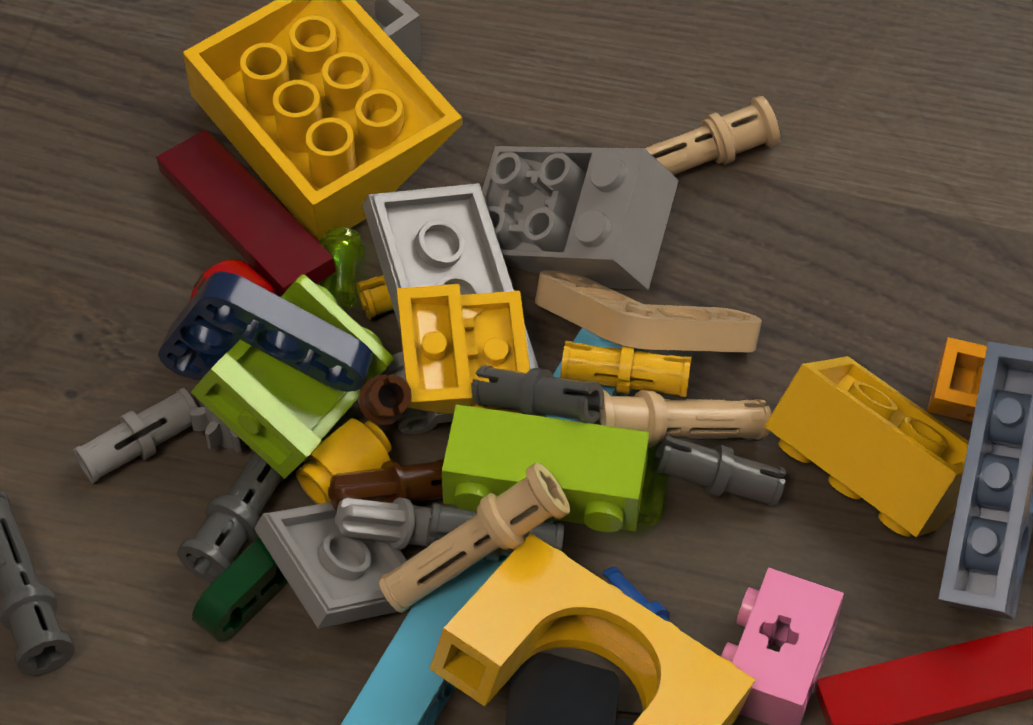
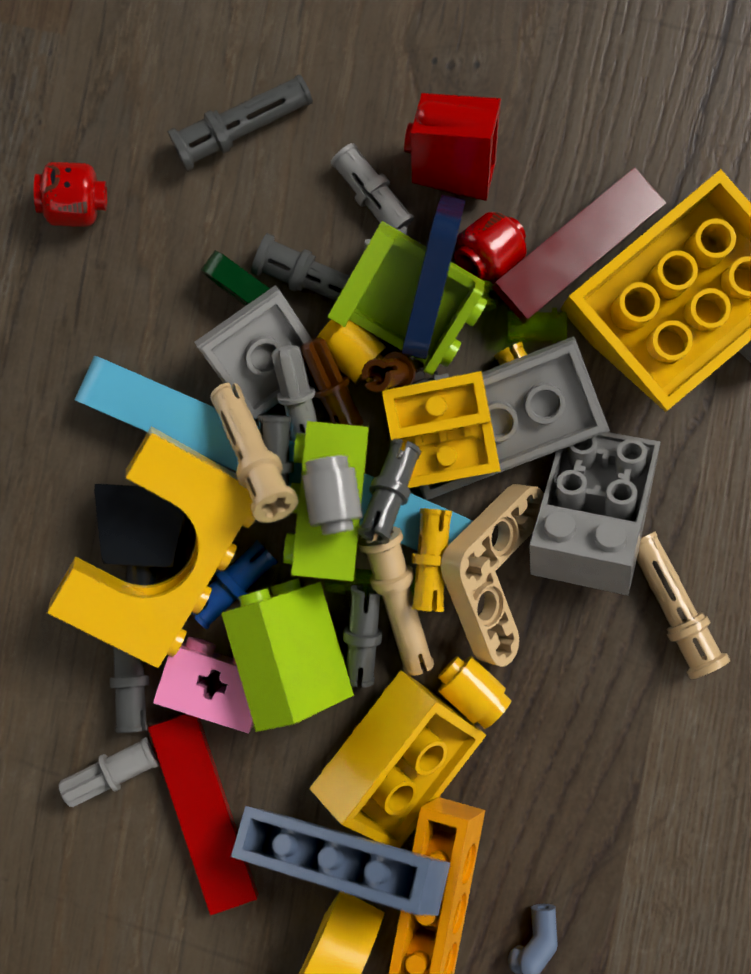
camera: 85 degrees right, 30 degrees up
(101, 318) = (454, 143): none -> red torso
(540, 430) = (332, 494): none -> light grey brick
(740, 537) = (287, 654): none -> lime brick
(783, 352) = (473, 691): none -> yellow brick

